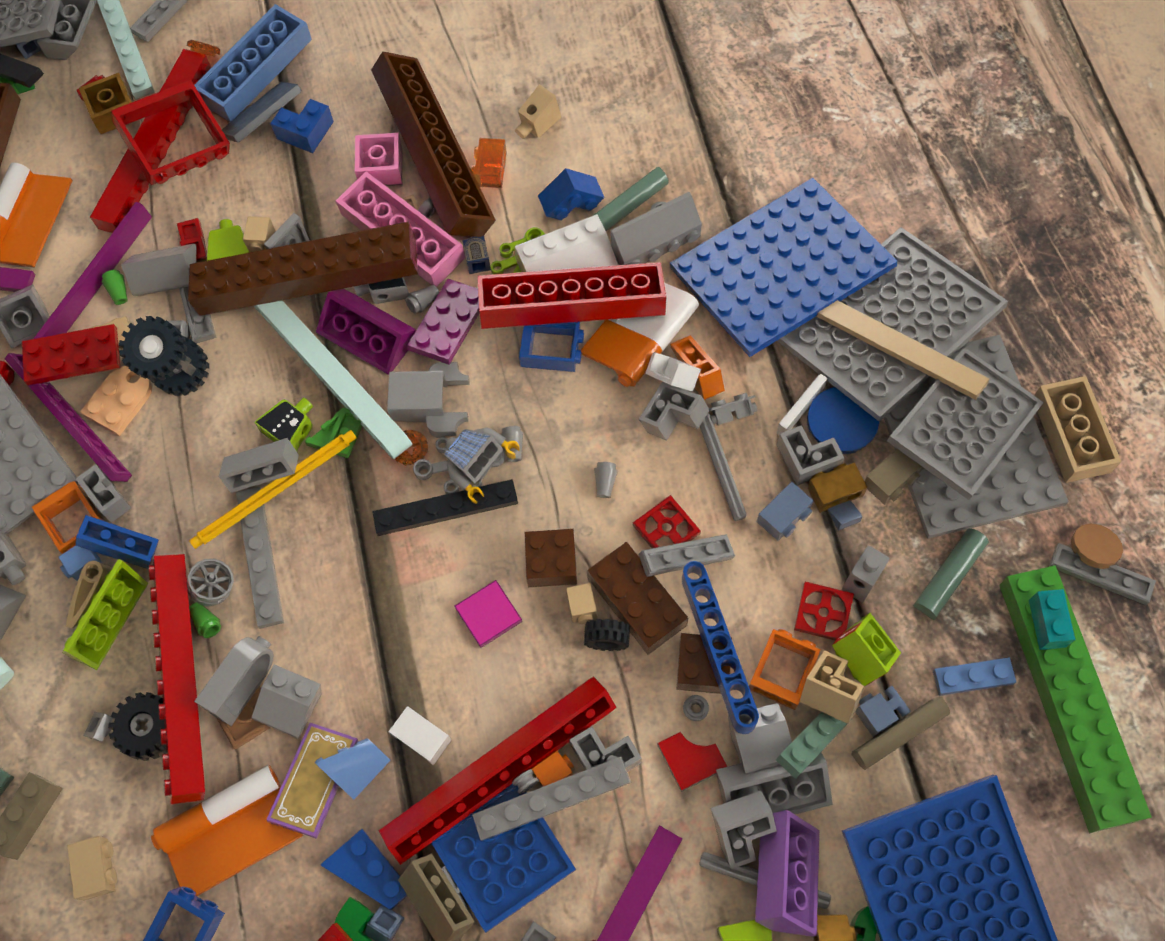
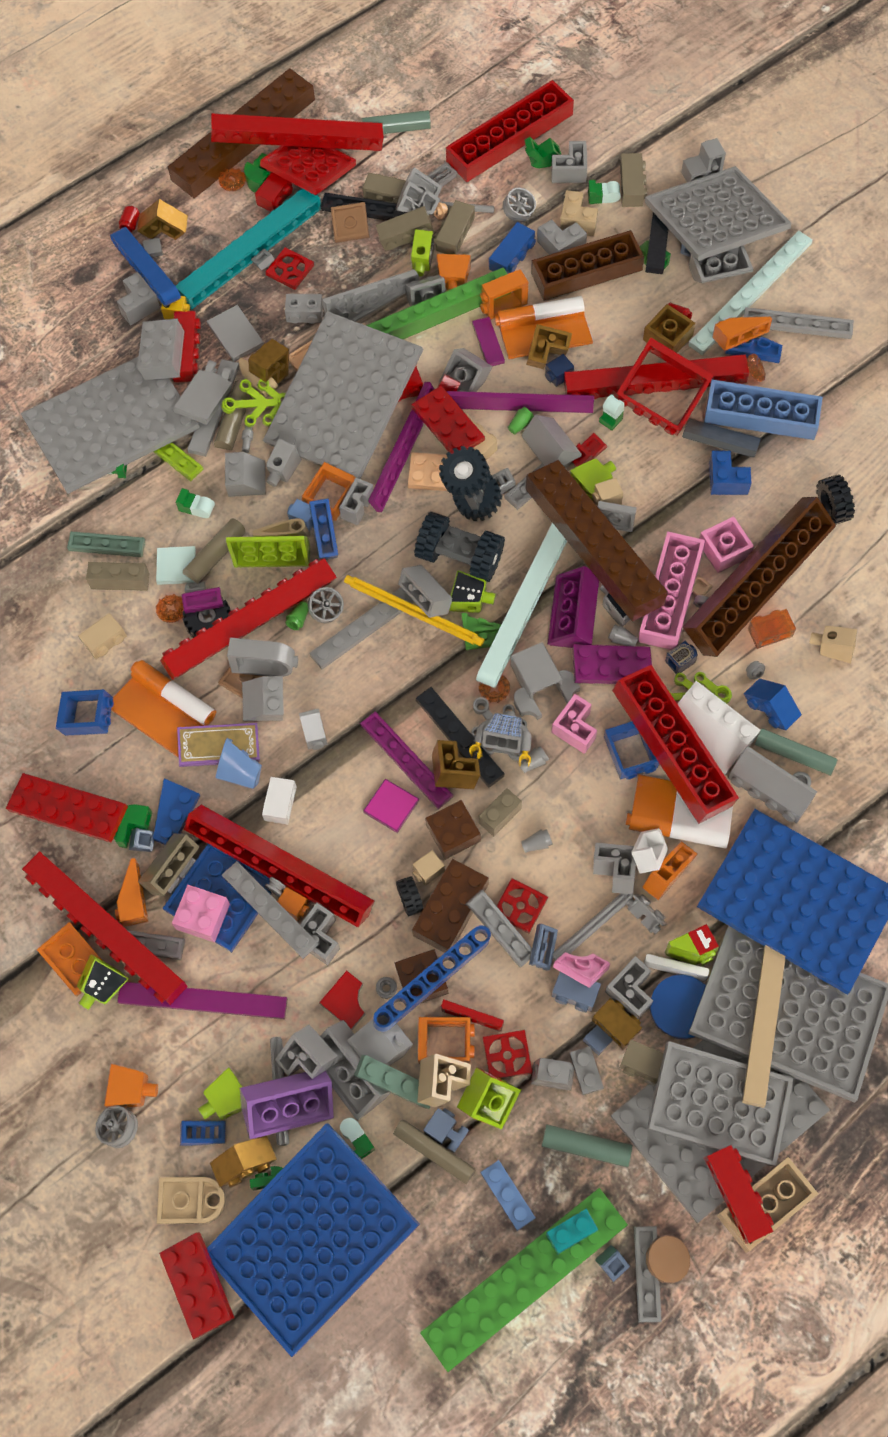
camera: 65 degrees right, 0 degrees up
(22, 334) = (449, 383): none -> red plate
(43, 217) = (547, 341): none -> pearl gold brick
(51, 738) = (171, 564): none -> light aqua tile
(62, 683) = (213, 551): none -> dark tan brick
(80, 223) = (556, 368): none -> dark blue brick
(114, 771) = (171, 615): none -> clear orange gear
(120, 721) = (202, 600): none -> magenta tile
(153, 41) = (740, 330): none -> orange slope
(166, 195) = (612, 412): none -> leg
(168, 49) = (762, 347): none -> blue wing
(227, 405) = (479, 552): none -> black plate
(356, 658) = (313, 729): none -> slope
(389, 38) = (836, 498): none -> black bush
(442, 575) = (405, 759): none -> magenta tile
(482, 529) = (451, 770): none -> pearl gold brick
(497, 388) = (571, 725): none -> bright pink brick
(517, 884) = (201, 913): none -> bright pink brick
(526, 196) = (755, 670): none -> light grey plate
(555, 501) = (500, 812): none -> dark tan brick
(723, 523) = (540, 946): none -> sand blue tile
(766, 493) = (582, 969): none -> bright pink tile
(766, 629) = (475, 1016): none -> red tile
(791, 375) = (694, 947): none -> lime slope
(853, 811) = (352, 1130): none -> leg
(879, 538) = (586, 1070): none -> light grey plate
(1067, 443) = (738, 1194): none -> red brick
(1082, 601) = (612, 1263): none -> sand blue slope

